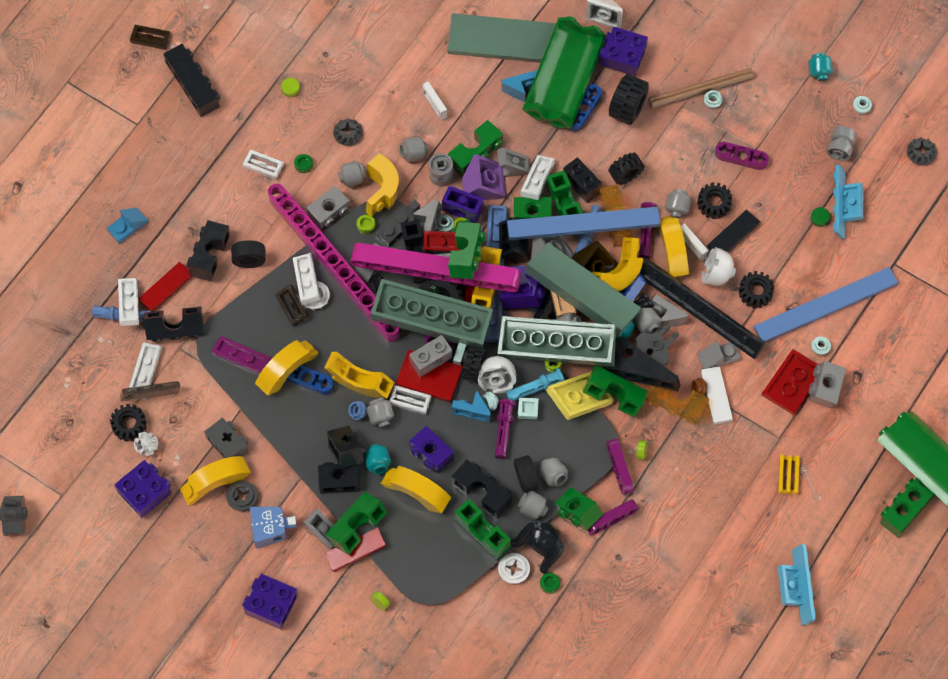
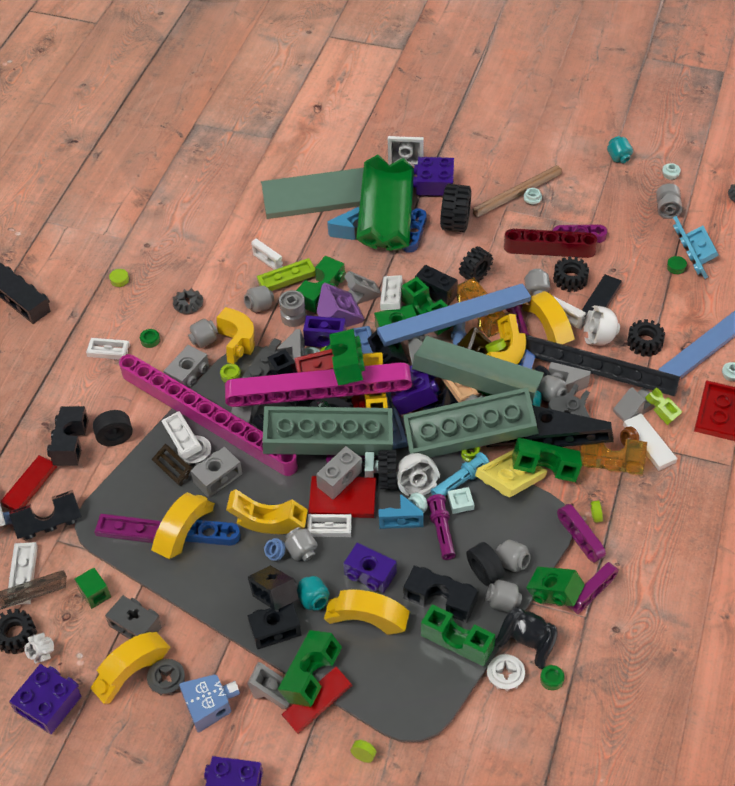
camera: 15 degrees left, 15 degrees down
(199, 402) = (92, 588): none -> green panel
(322, 332) = (216, 472): none -> light grey brick
(447, 128) = (287, 275): none -> lime plate
(612, 263) = (496, 345): none -> lime tile
(717, 160) = (550, 243): none -> dark red beam
(743, 367) = (664, 408): none -> lime plate

